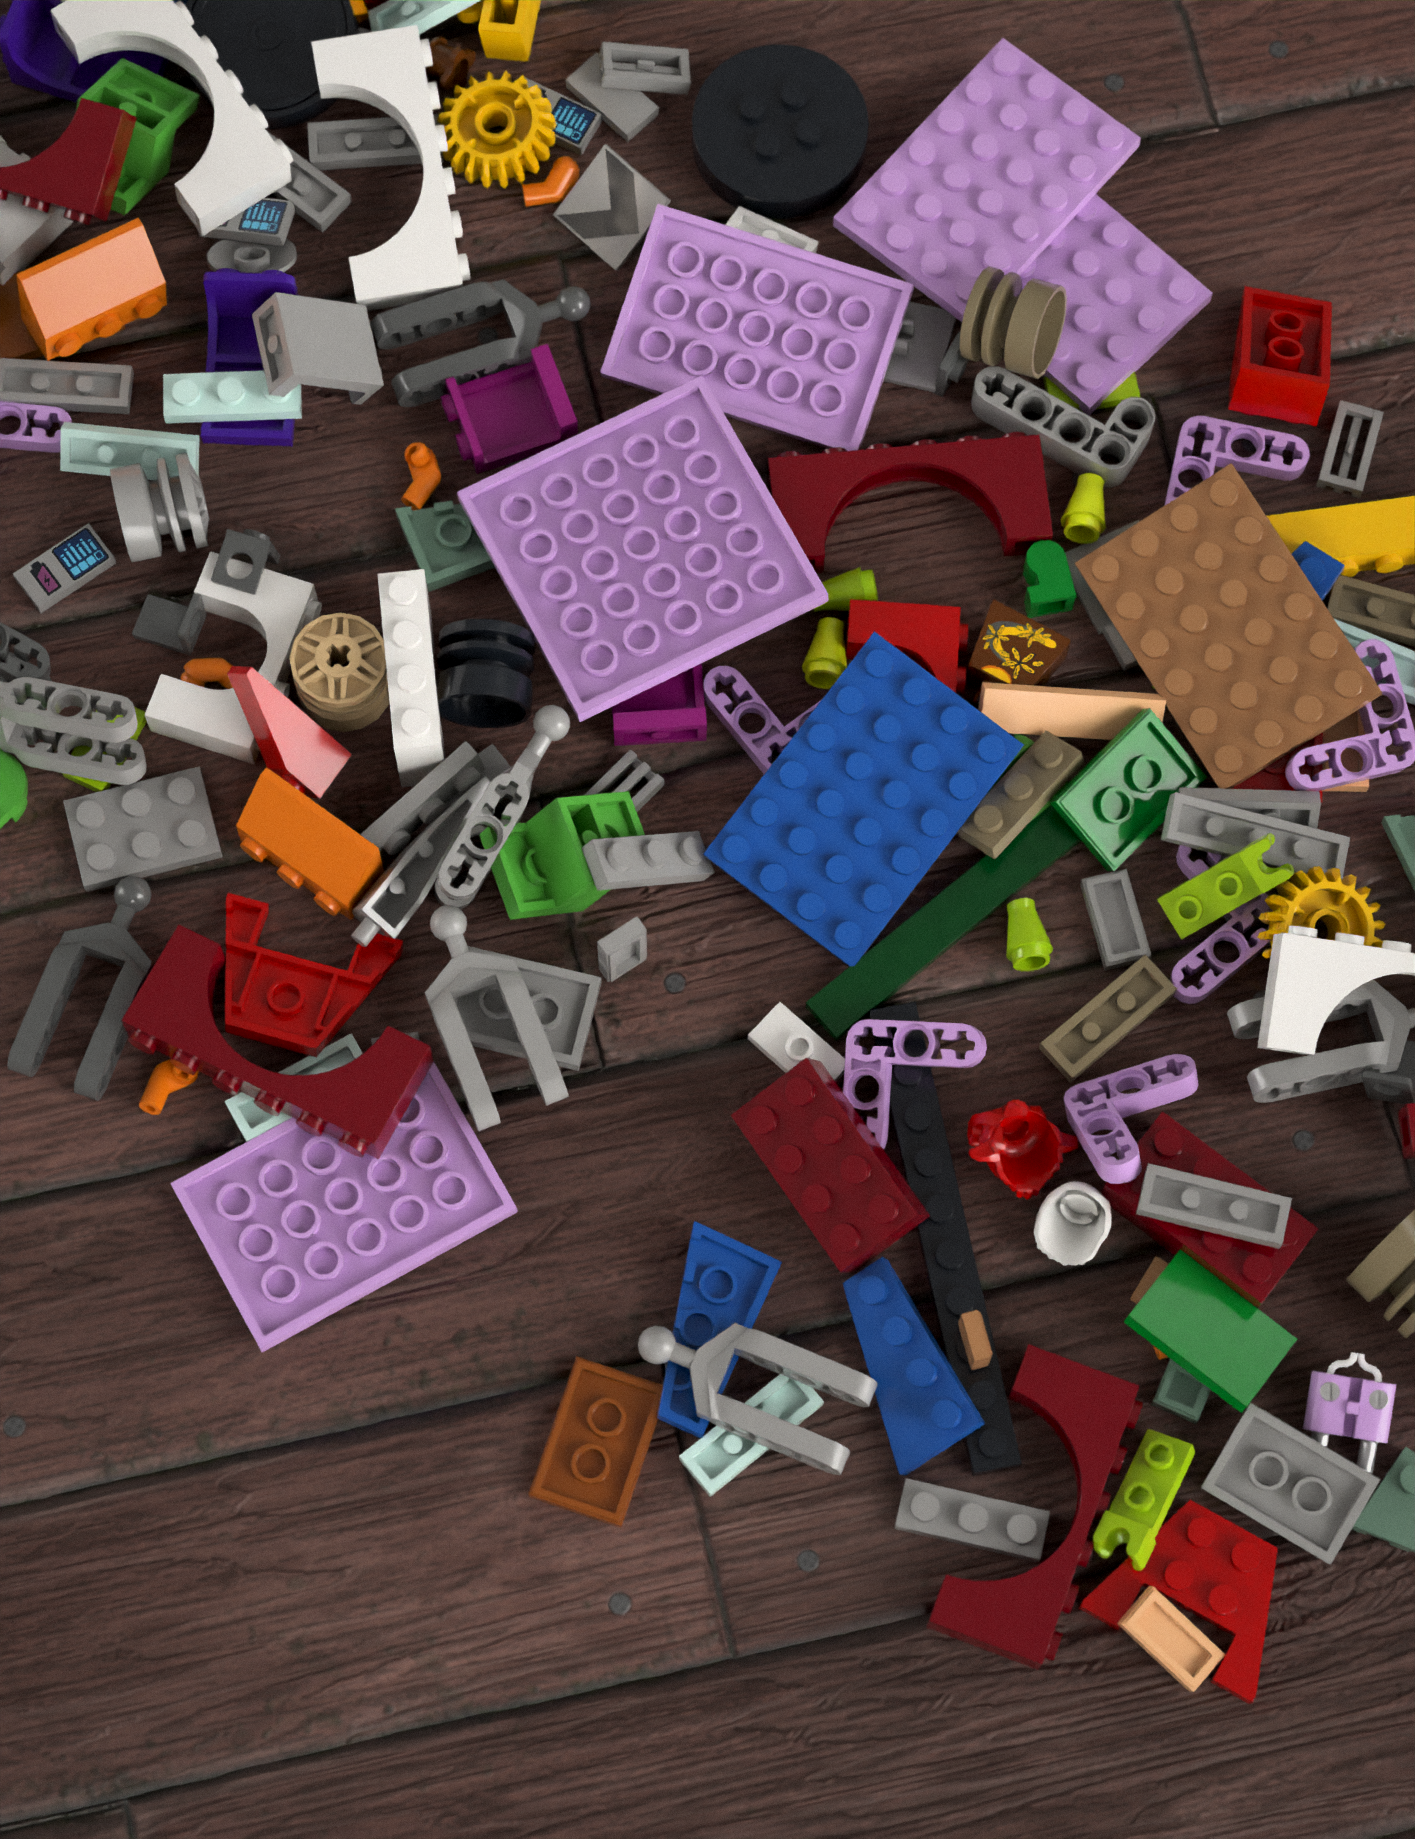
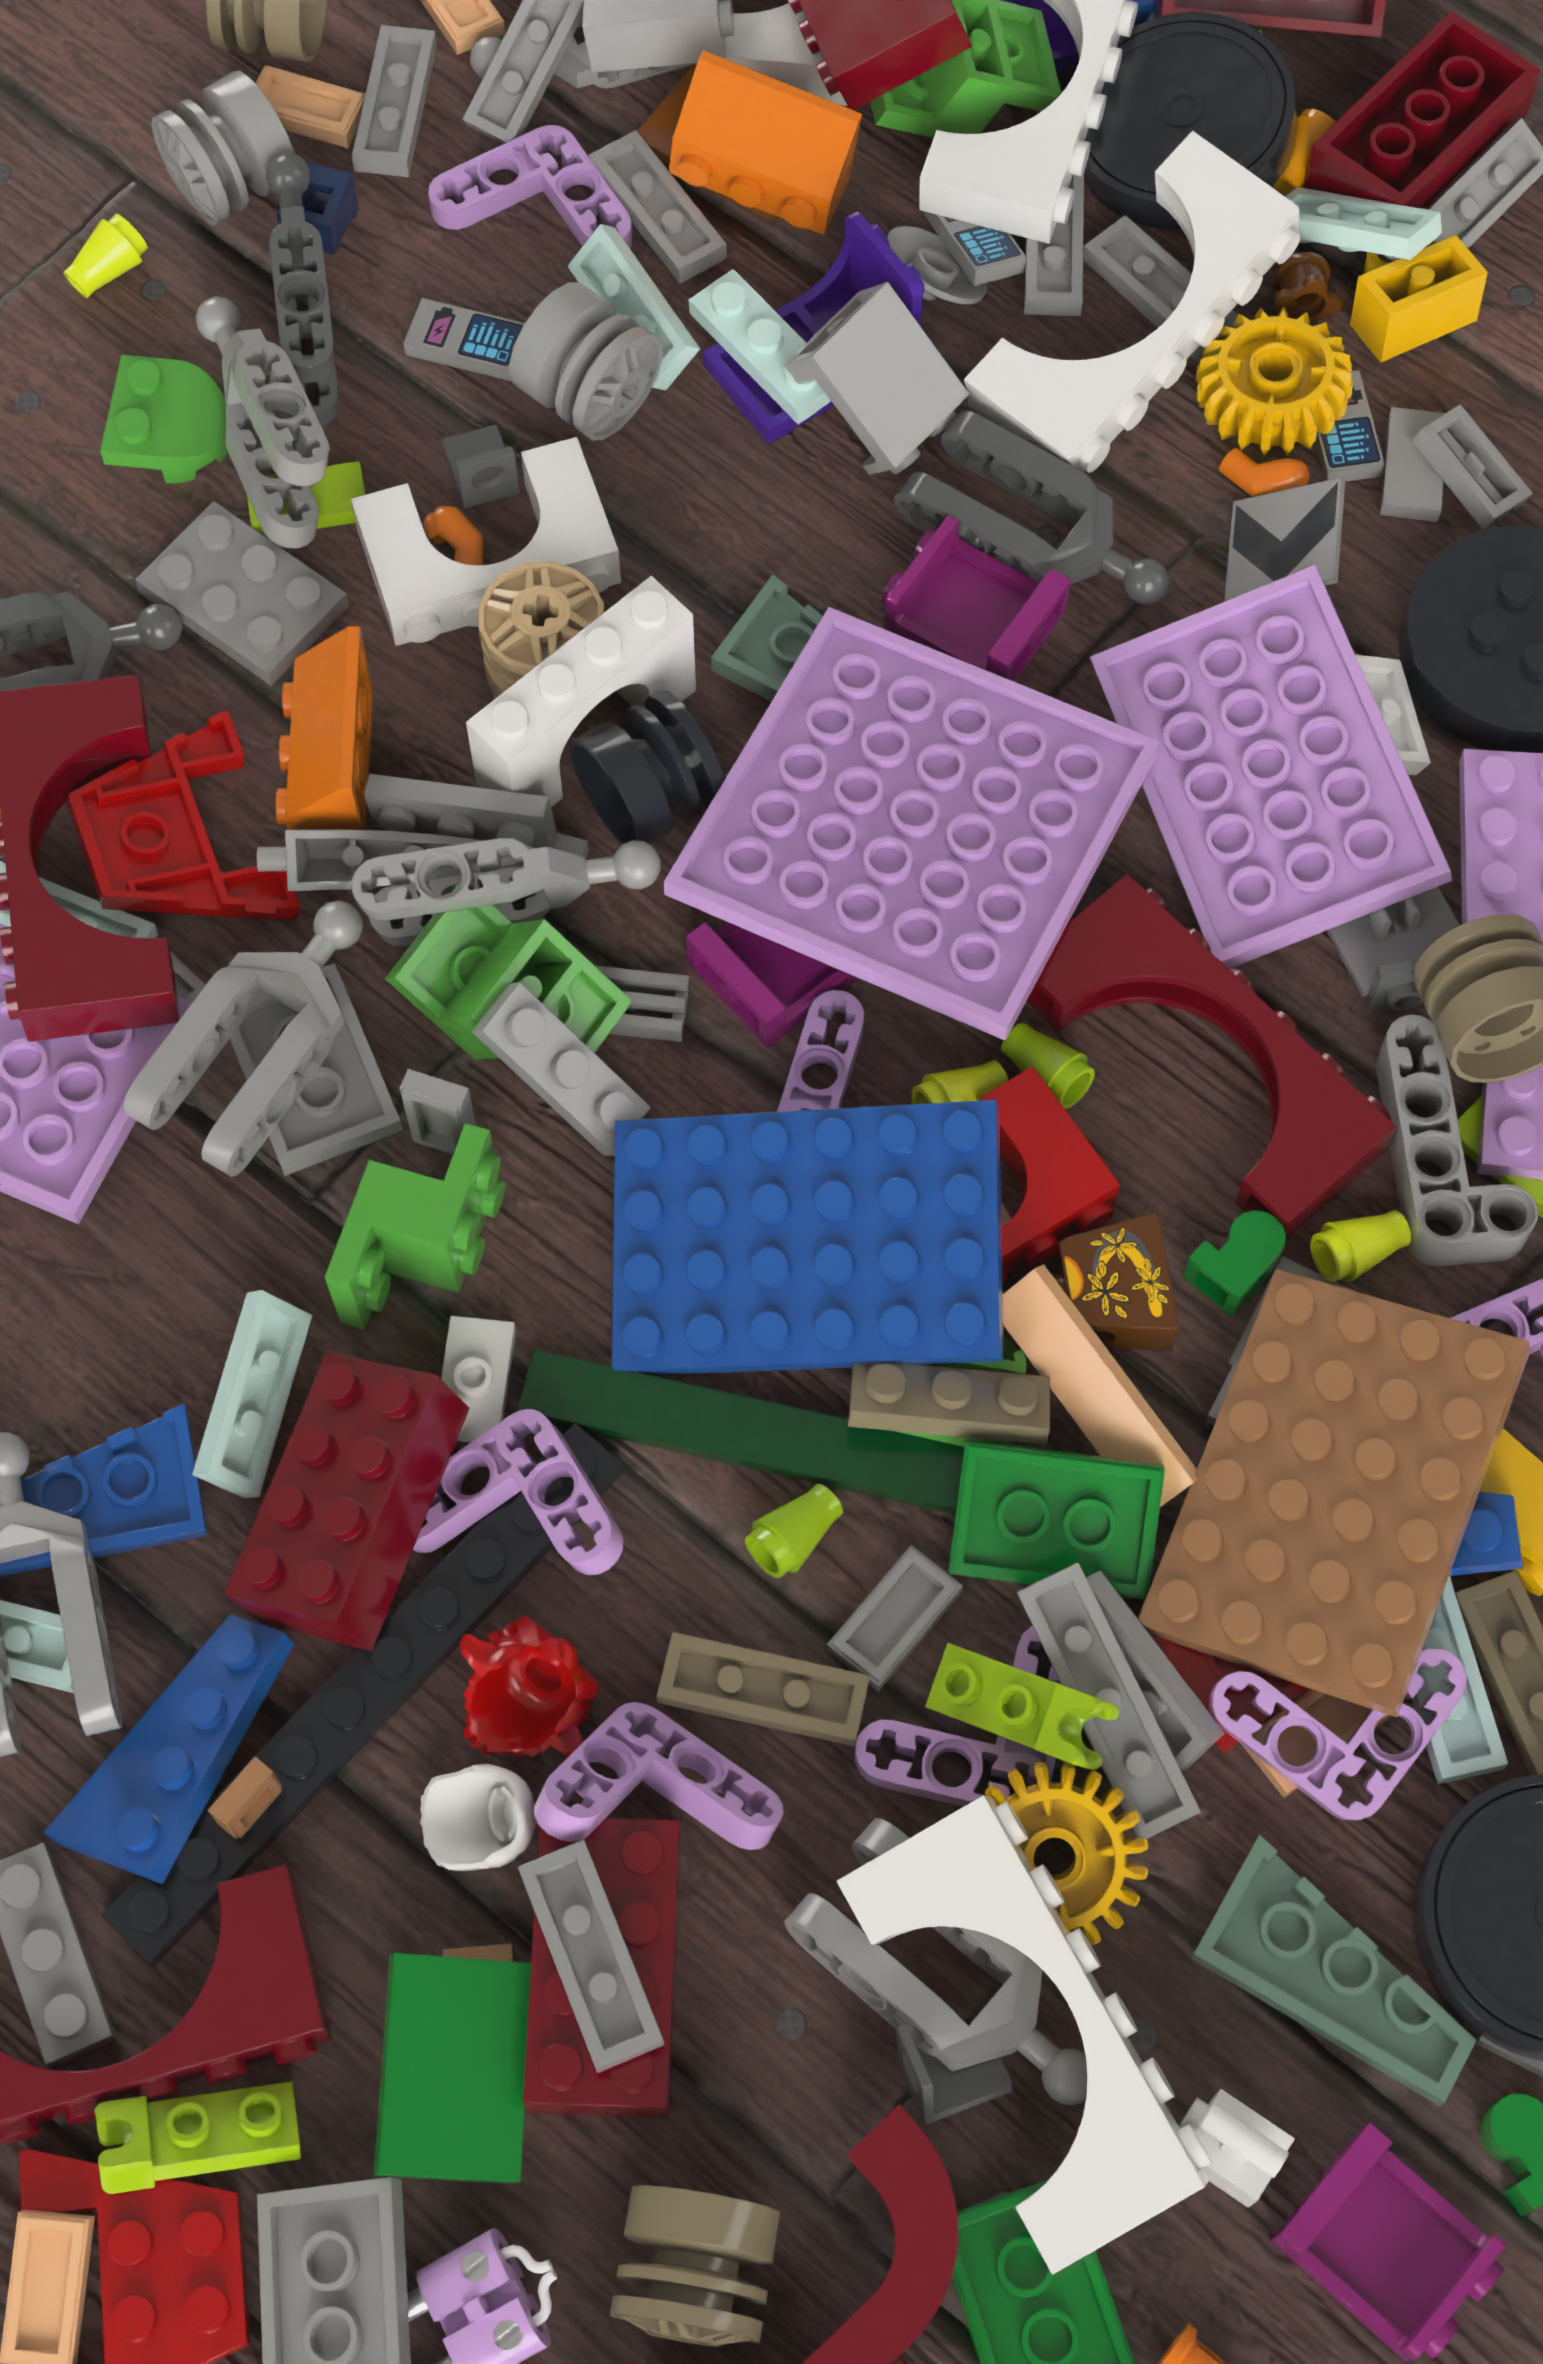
camera: 55 degrees right, 5 degrees down
(248, 543) = (609, 471): dark grey bracket -> none
(286, 735) = (425, 652): slope -> none
(425, 475) = (838, 580): orange arm -> none
(687, 1011) = (415, 1228): none -> bright green bracket
(713, 1179) = (252, 1394): none -> light aqua plate
(1181, 1393) = (357, 2093): sand green tile -> none

